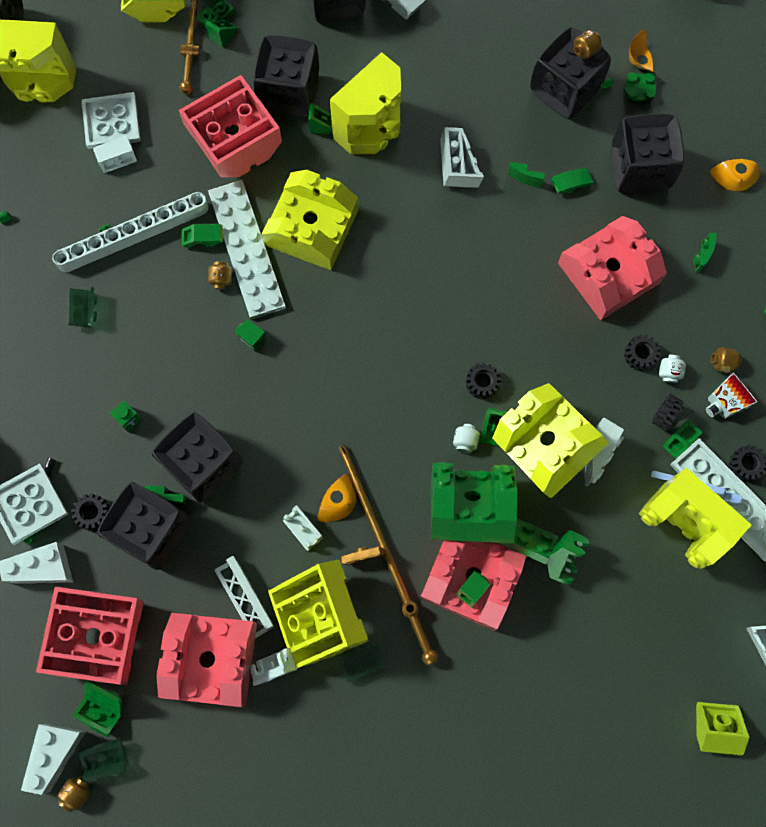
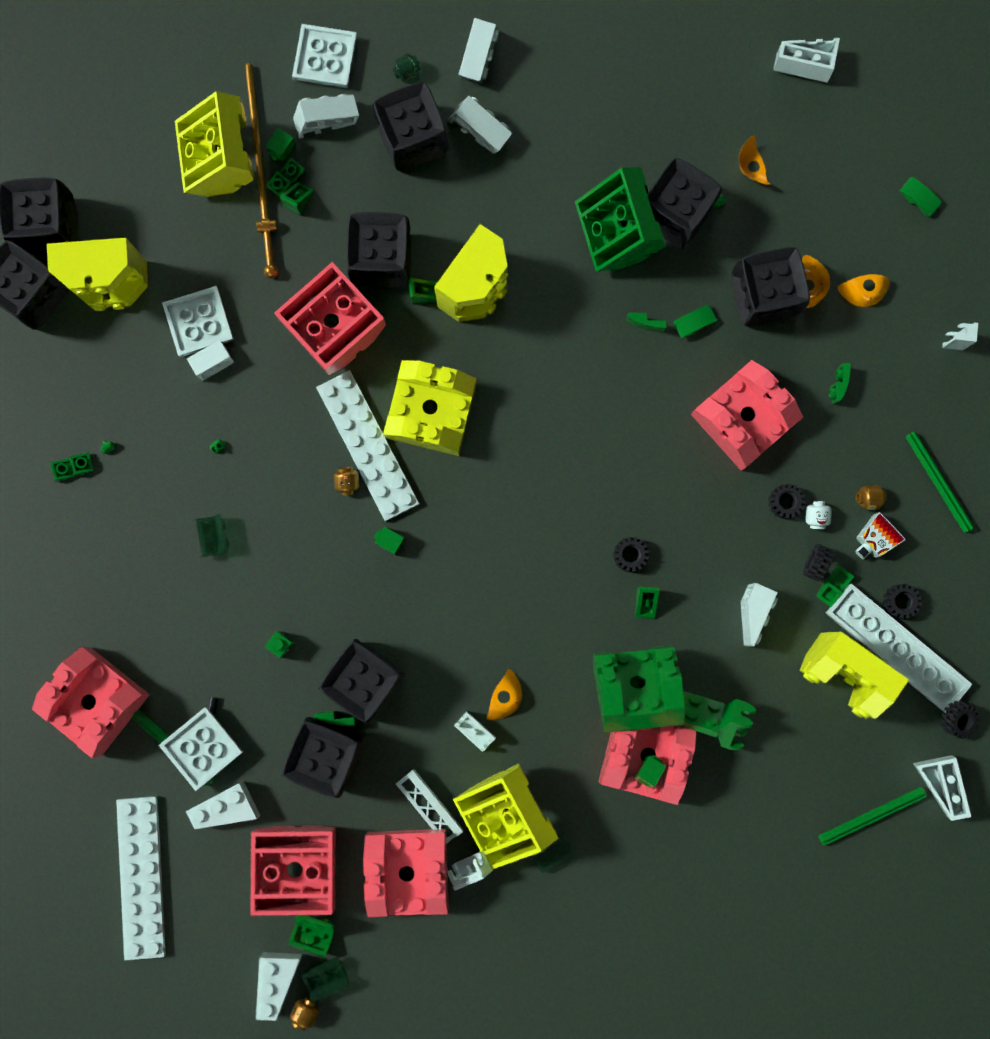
camera: 10 degrees left, 10 degrees up
(80, 507) = (253, 750): black tyre -> none
(122, 232) = (236, 446): light aqua beam -> none
(202, 233) = (319, 439): green slope -> none
(363, 554) = (538, 749): plate -> none
(429, 656) = (616, 837): pearl gold bar -> none
(458, 163) = (572, 317): light aqua wedge -> none
(466, 438) = (622, 617): light aqua head -> none
(513, 57) = (614, 200): none -> green piece
(574, 443) = (730, 612): neon yellow piece -> none
(587, 44) = (695, 180): pearl gold head -> none
(640, 86) = (755, 201): green piece -> none
(693, 156) = (818, 275): none -> light orange piece
(699, 676) = (872, 816): none -> green axle
(721, 729) = (896, 862): lime slope -> none
(729, 497) = (885, 639): light blue piece -> none

